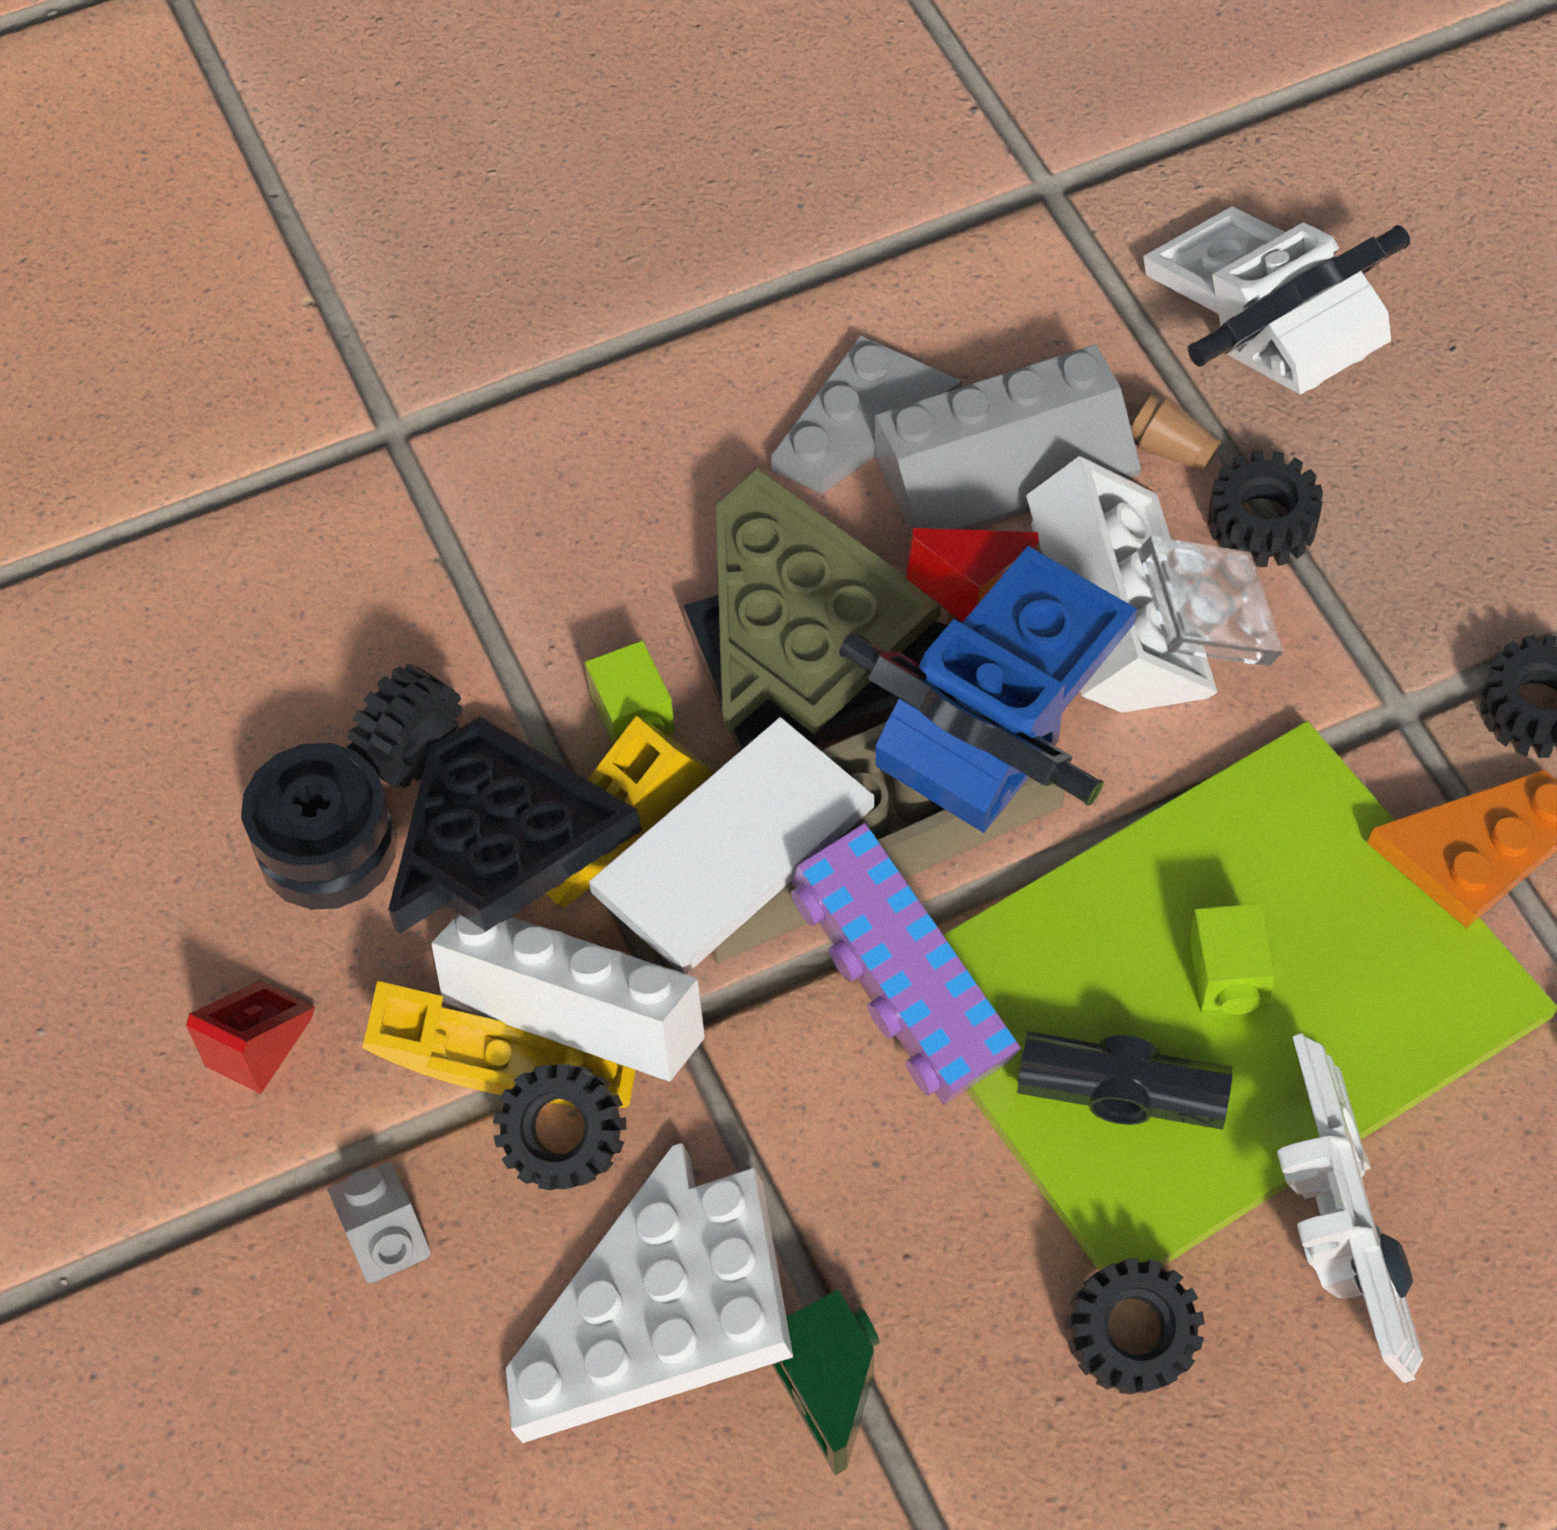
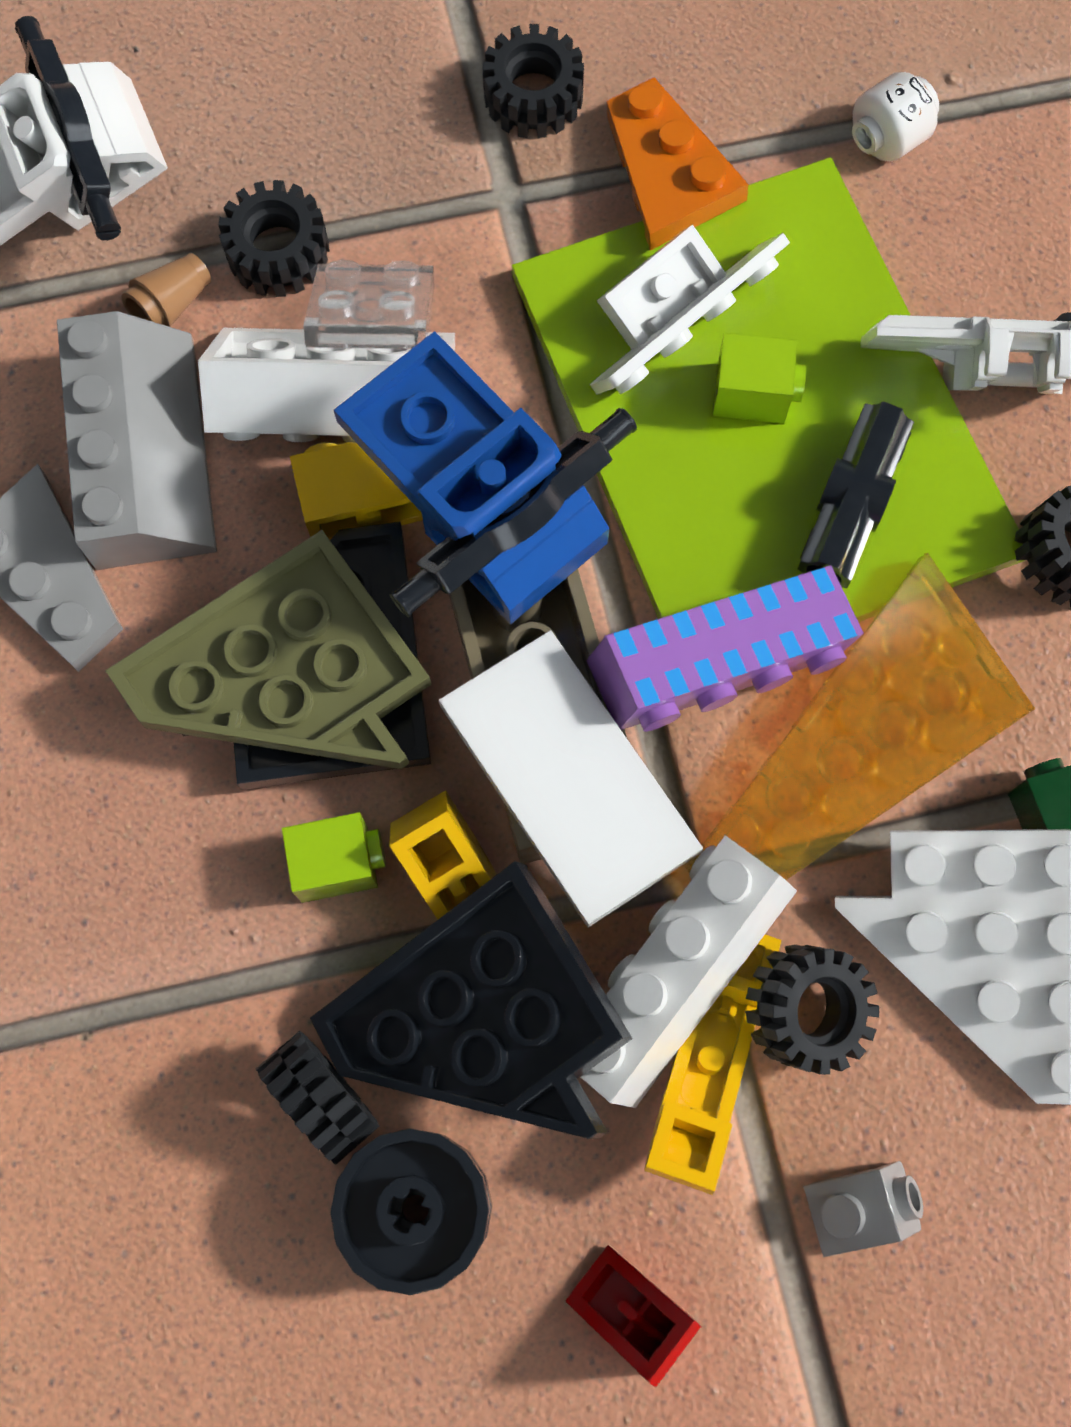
camera: 80 degrees left, 15 degrees up
(887, 1168) = (883, 724): none -> clear yellow wing
(961, 564) = (306, 489): red slope -> none
(1309, 858) = (669, 295): none -> white bracket

